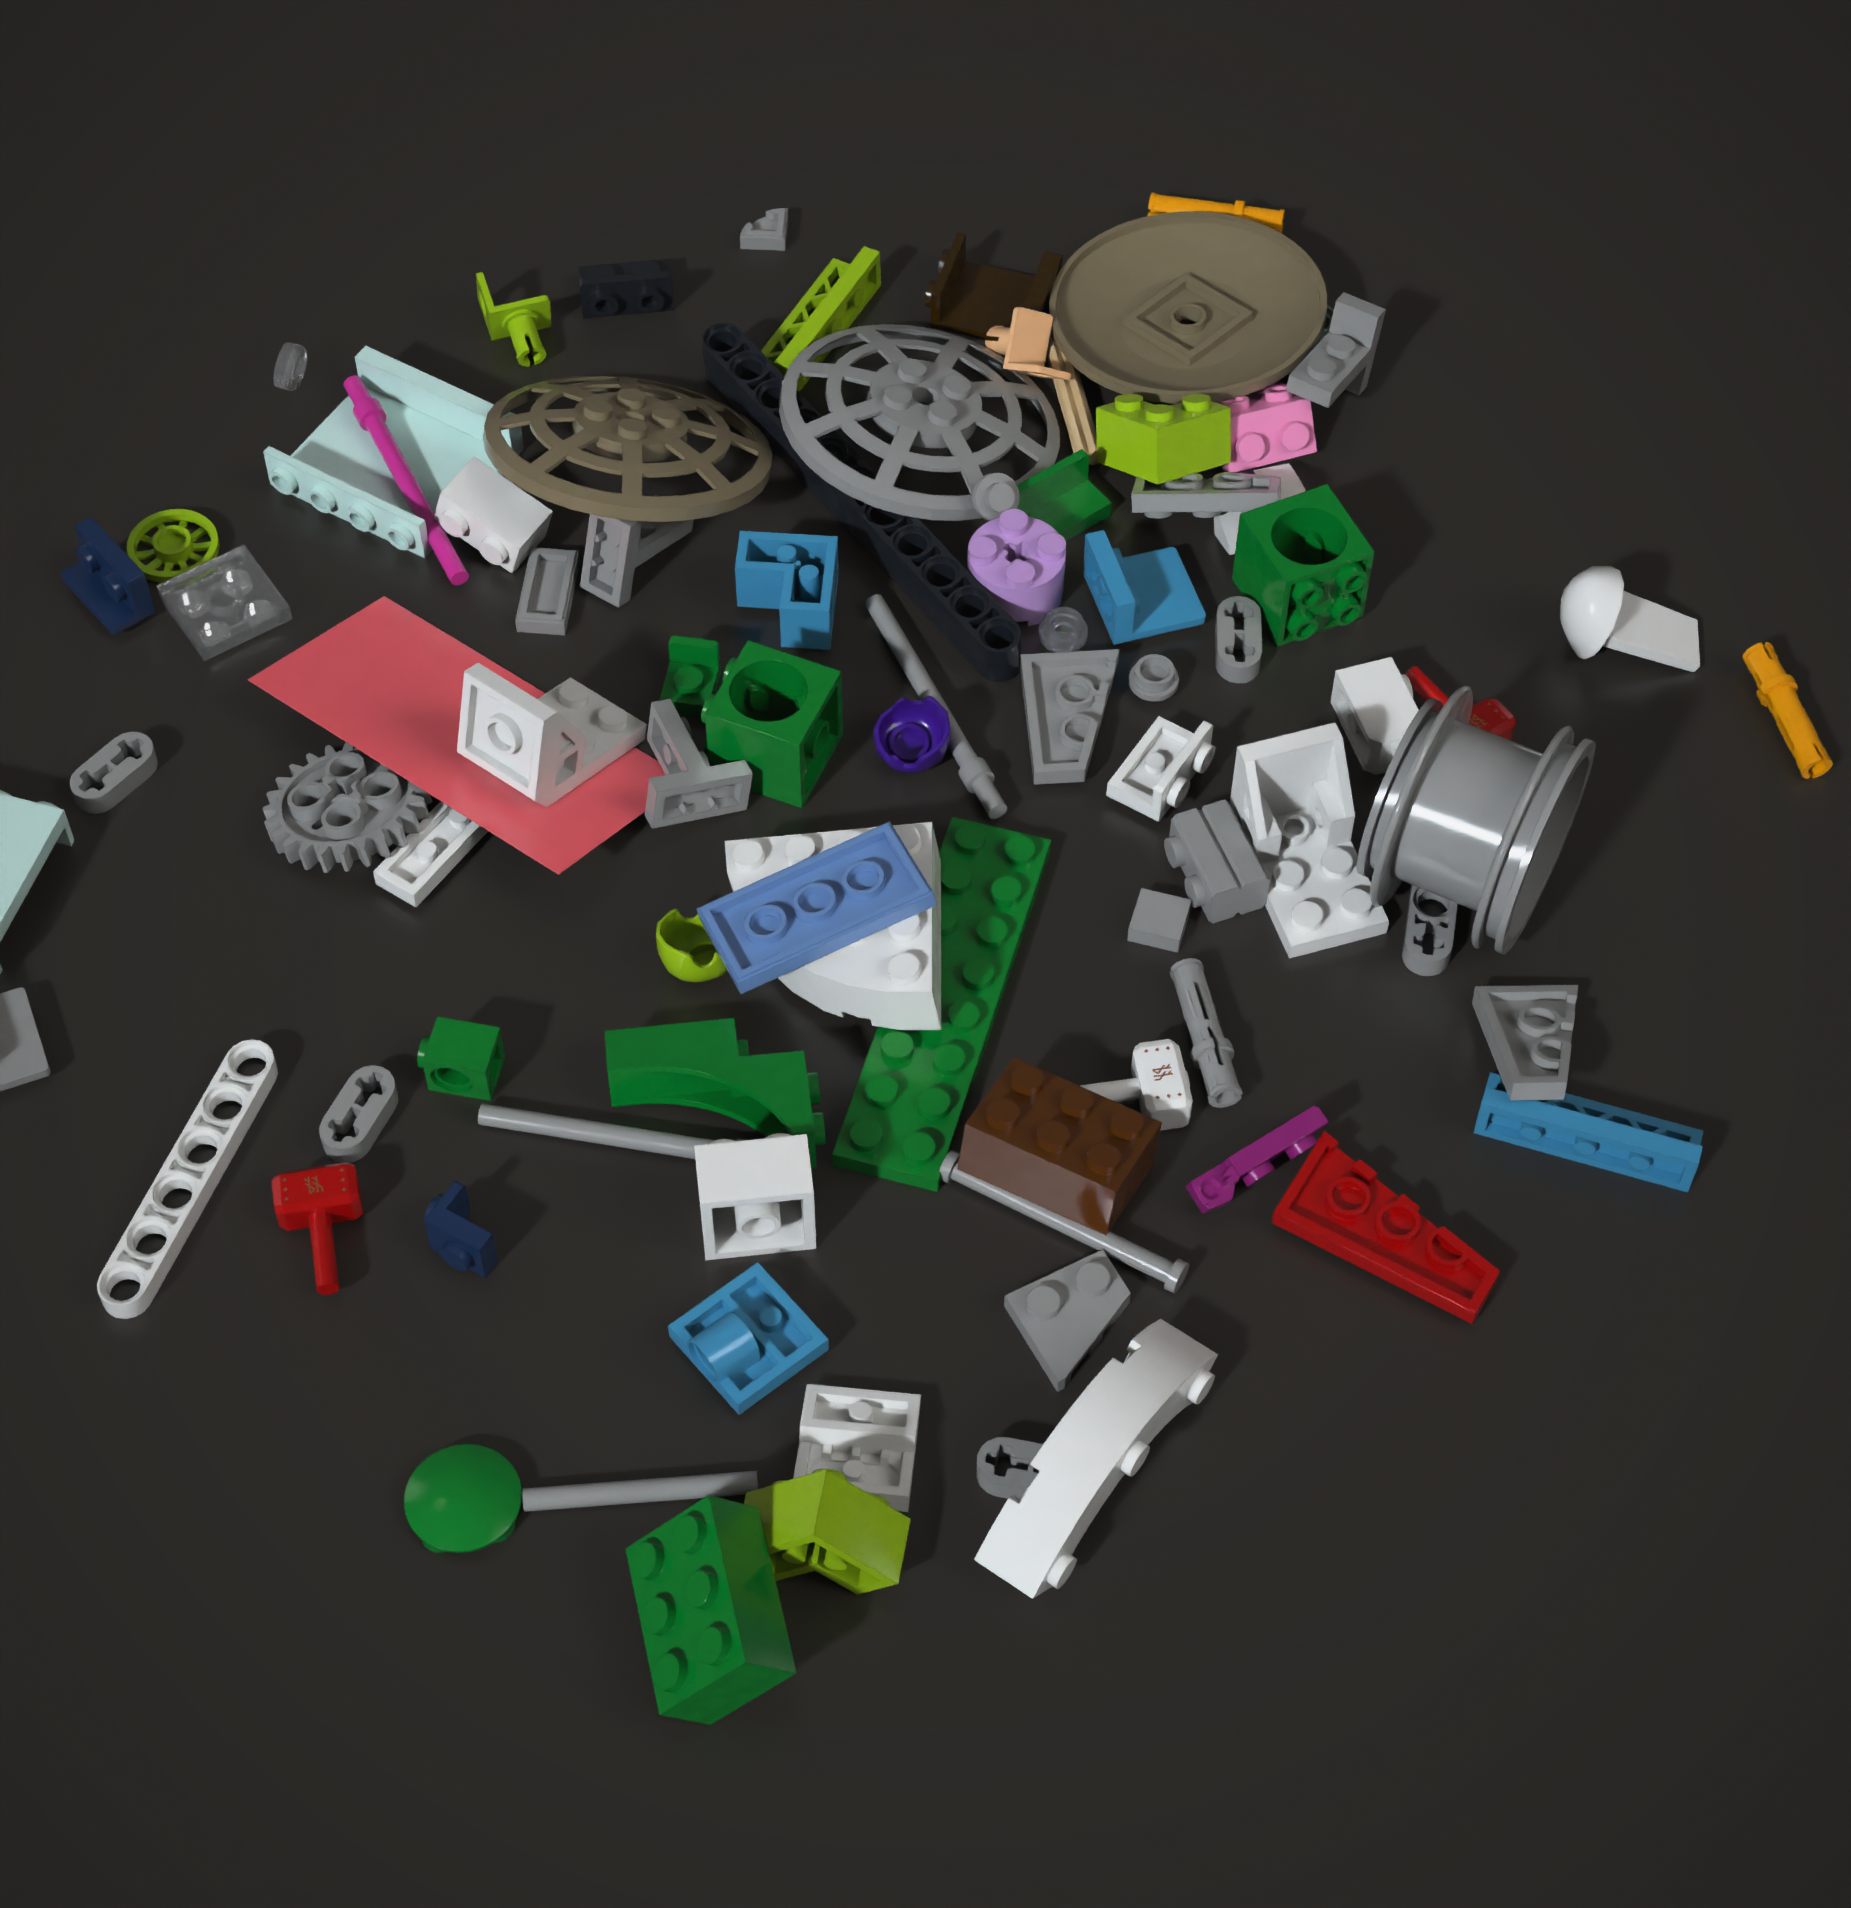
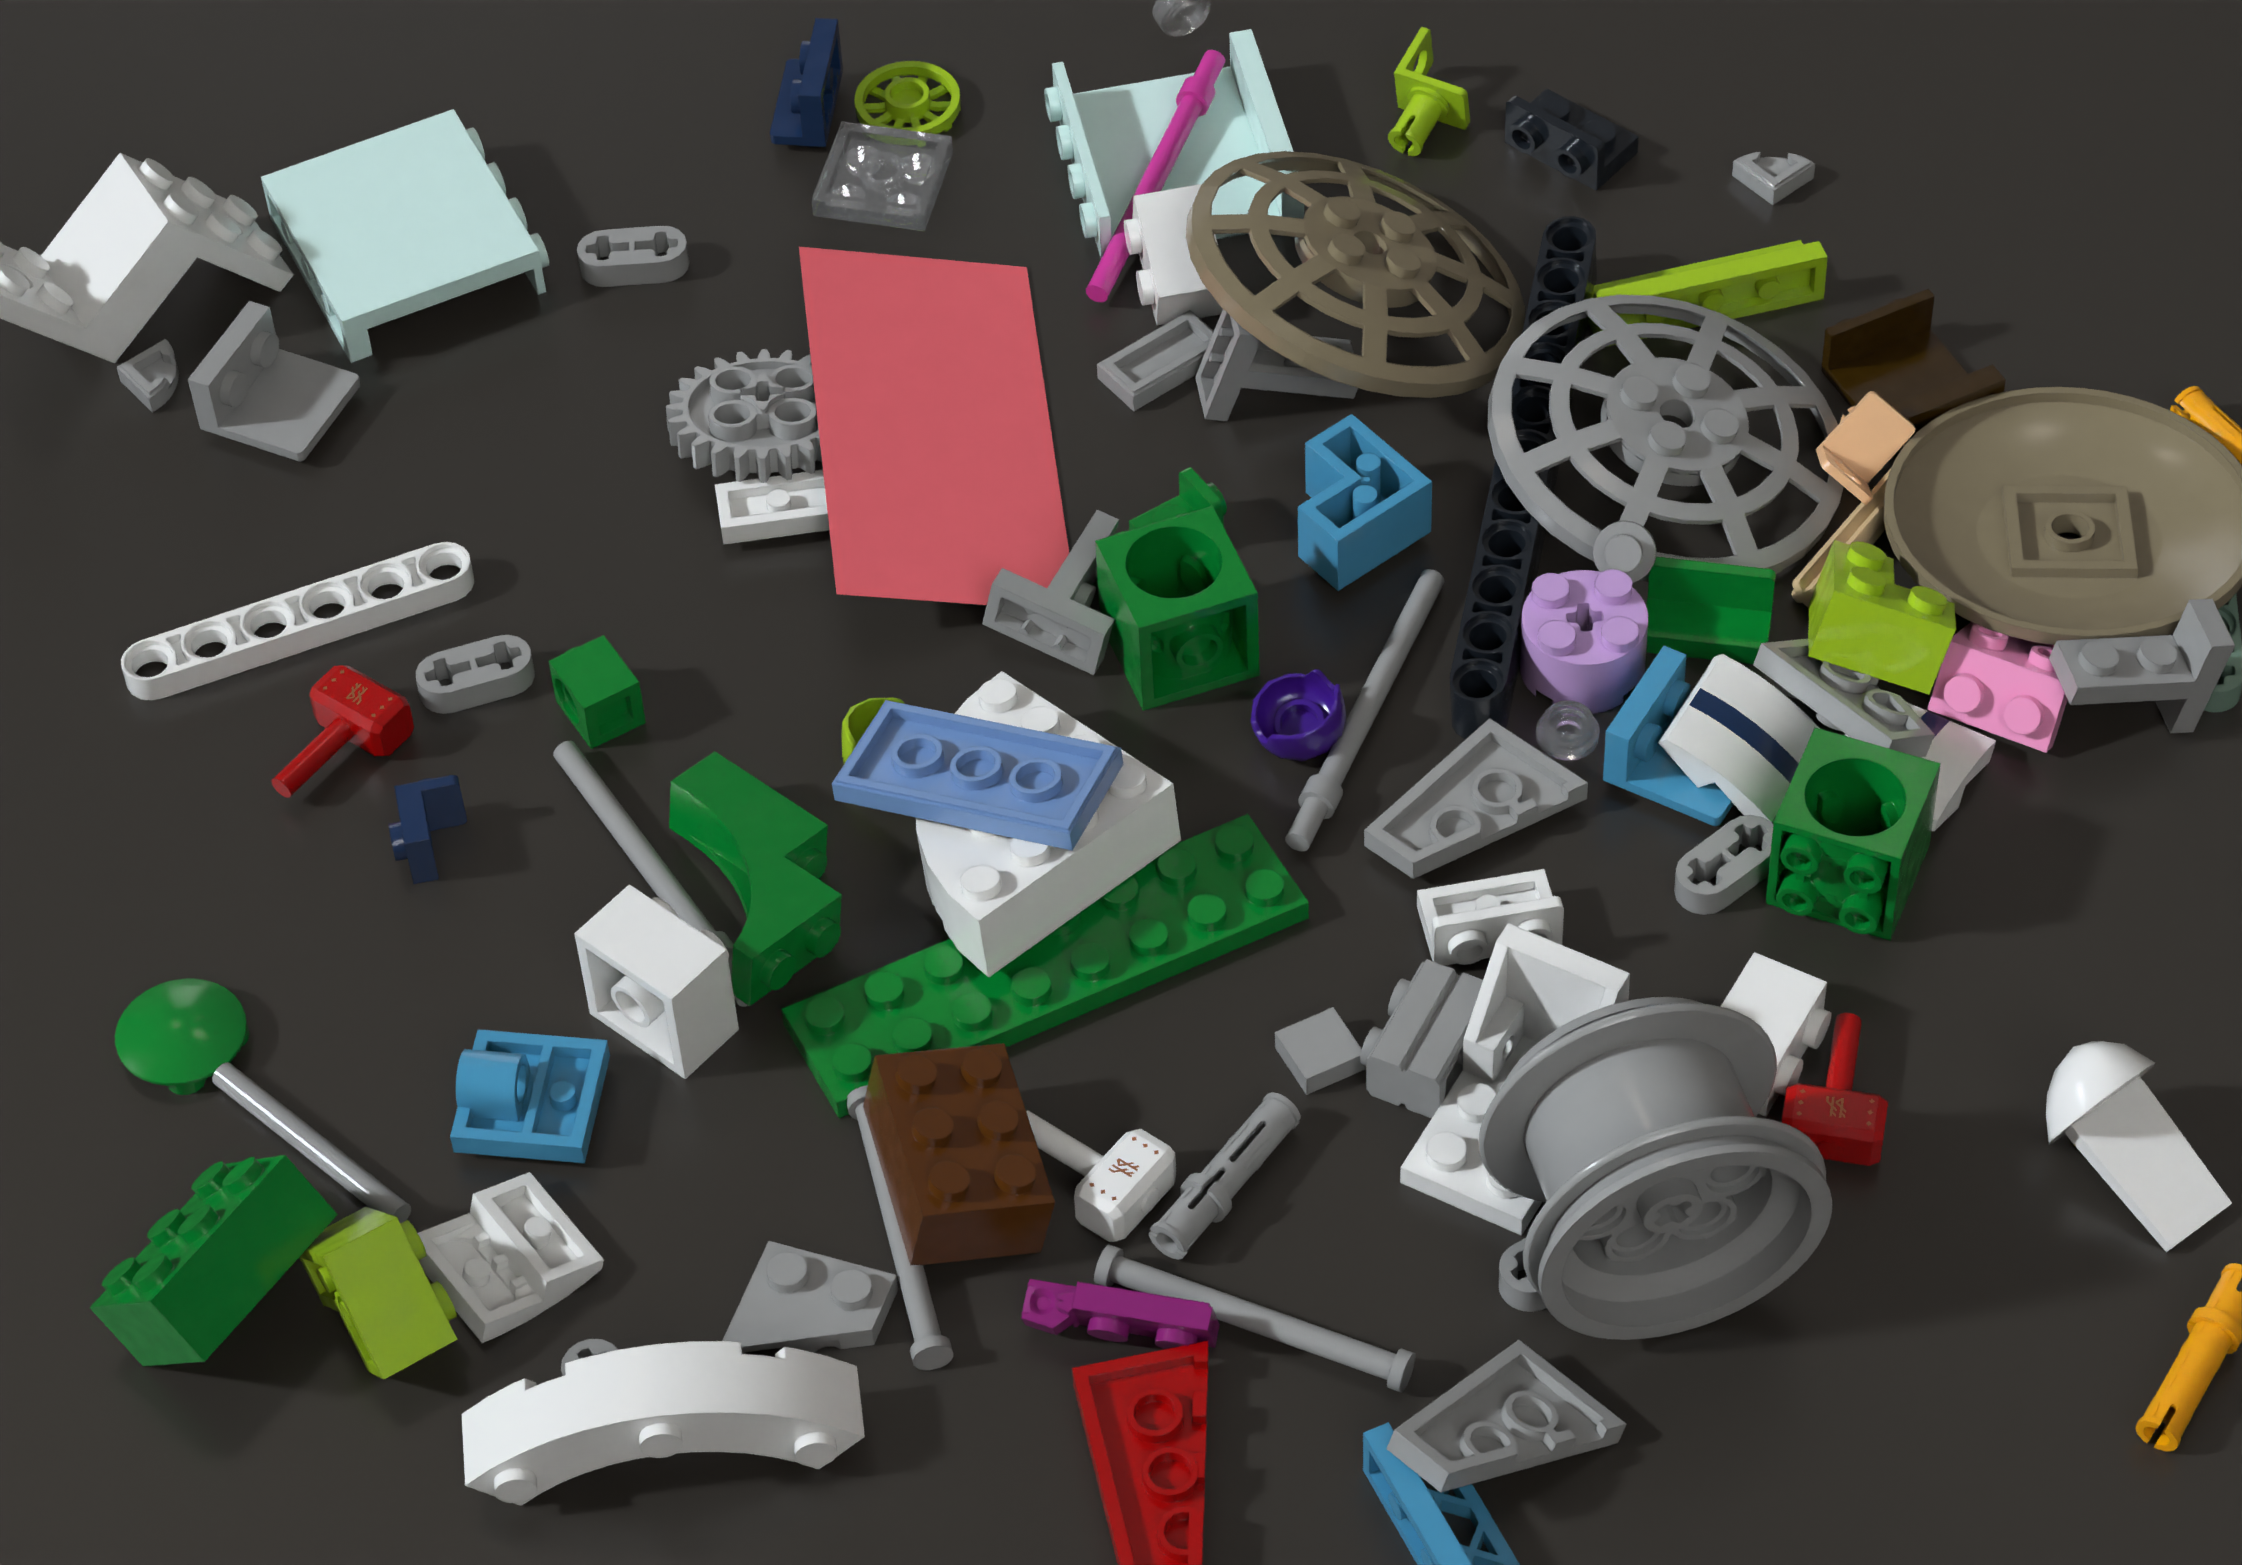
camera: 50 degrees right, 5 degrees down
(544, 742) = (967, 485): white bracket -> none
(1153, 678) = (1596, 837): light grey plate -> none
(1170, 559) = (1739, 736): none -> white slope
(1426, 1060) = (1258, 1319): none -> light grey bar

